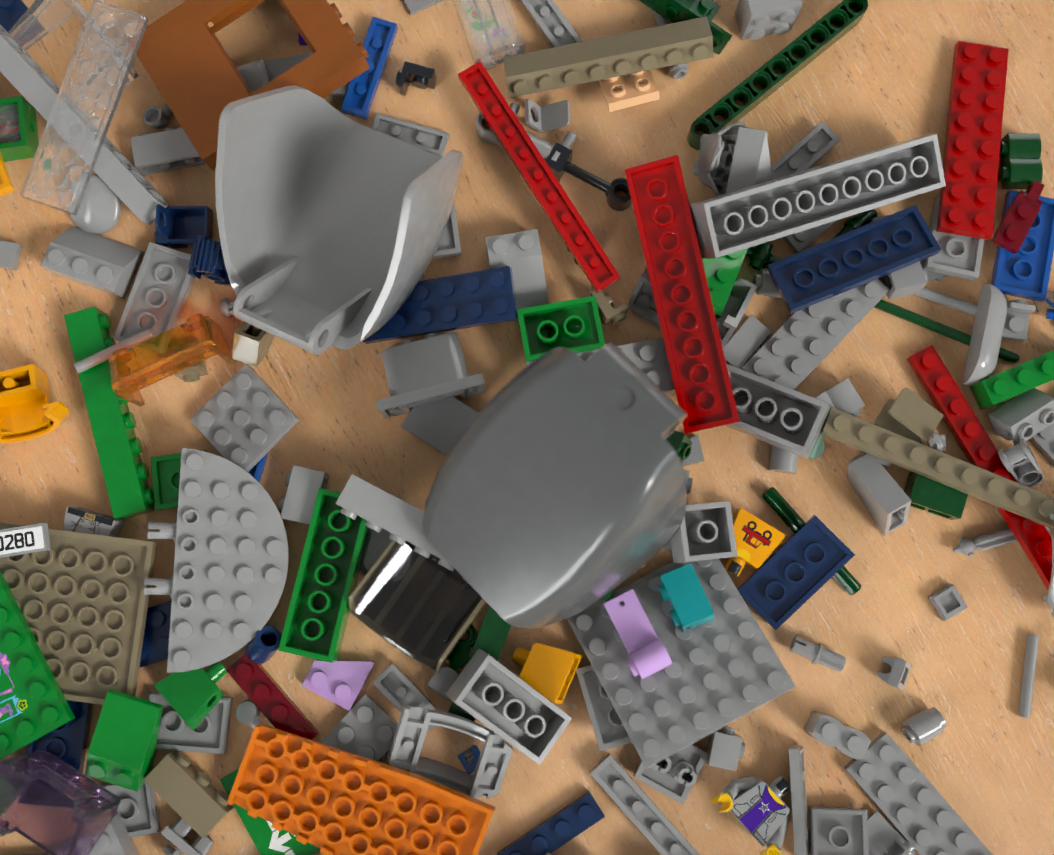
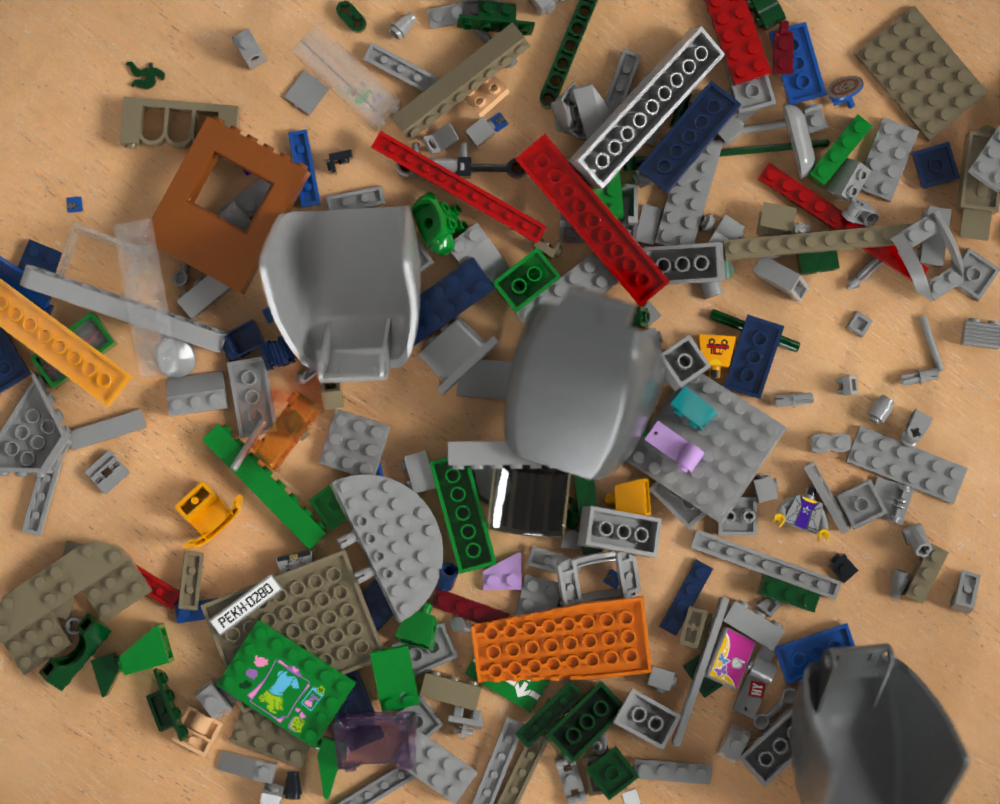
camera: 30 degrees left, 5 degrees up
(484, 215) = (437, 233): none -> green piece
(599, 130) = (480, 132): none -> light grey brick
(626, 133) = (499, 122): none -> blue sticker
(819, 377) = (707, 222): none -> light grey plate
(958, 775) = (915, 428): none -> light grey piece
(994, 710) = (919, 377): none -> light grey axle

